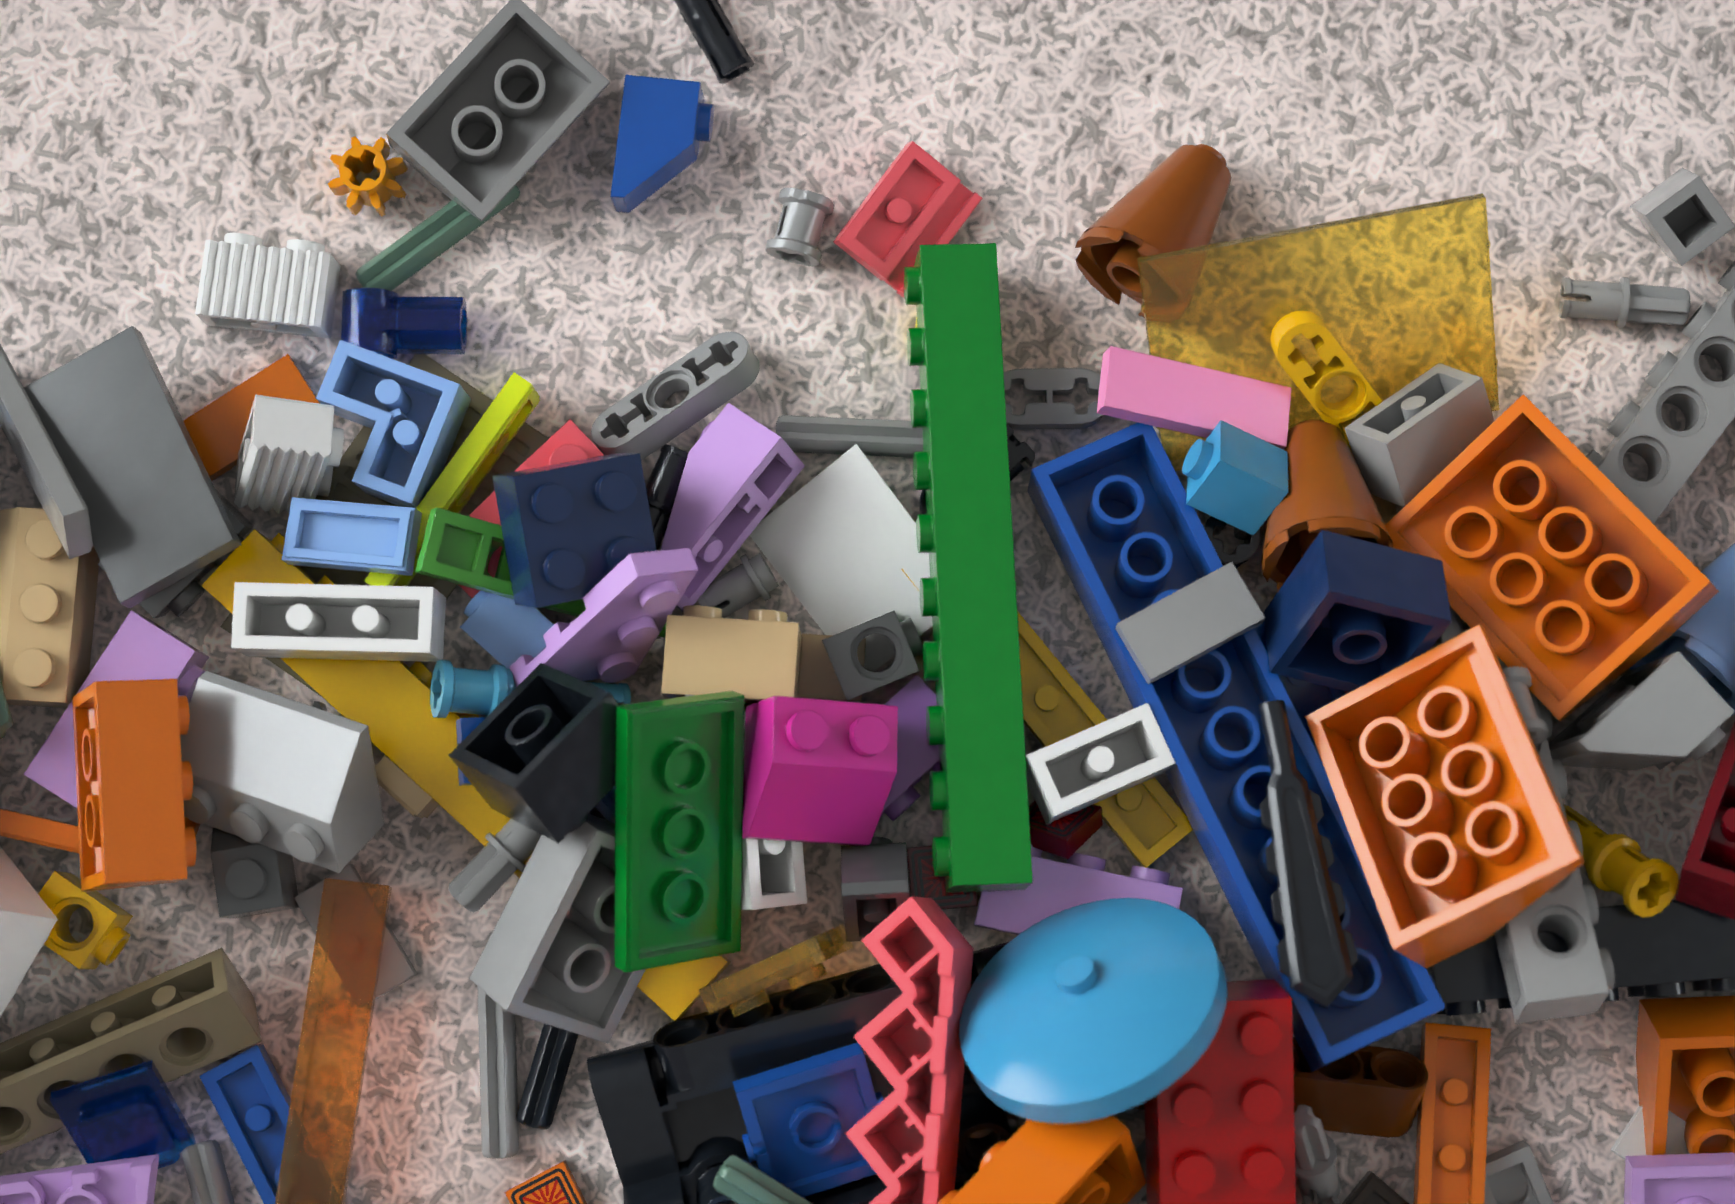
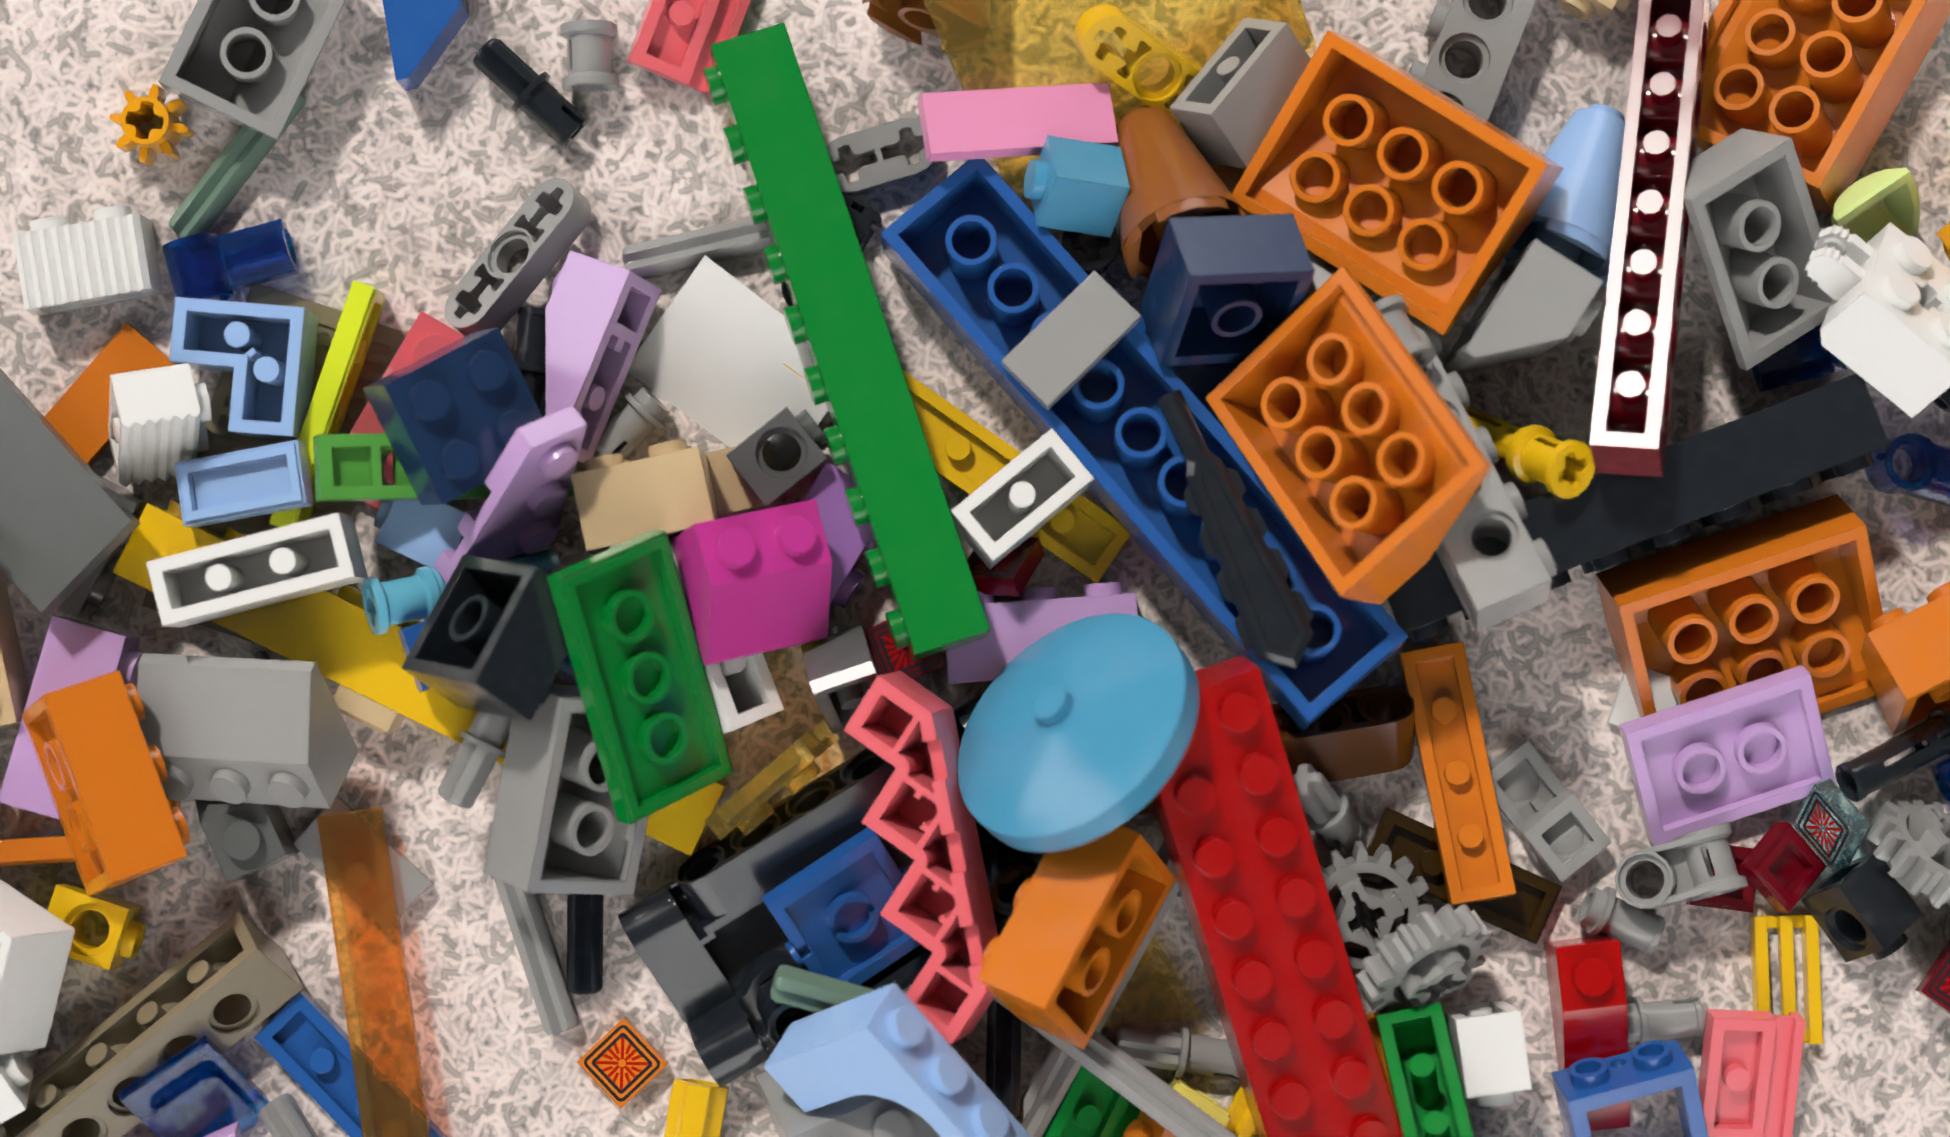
camera: 20 degrees left, 5 degrees up
(734, 245) = (530, 91): none -> black axle

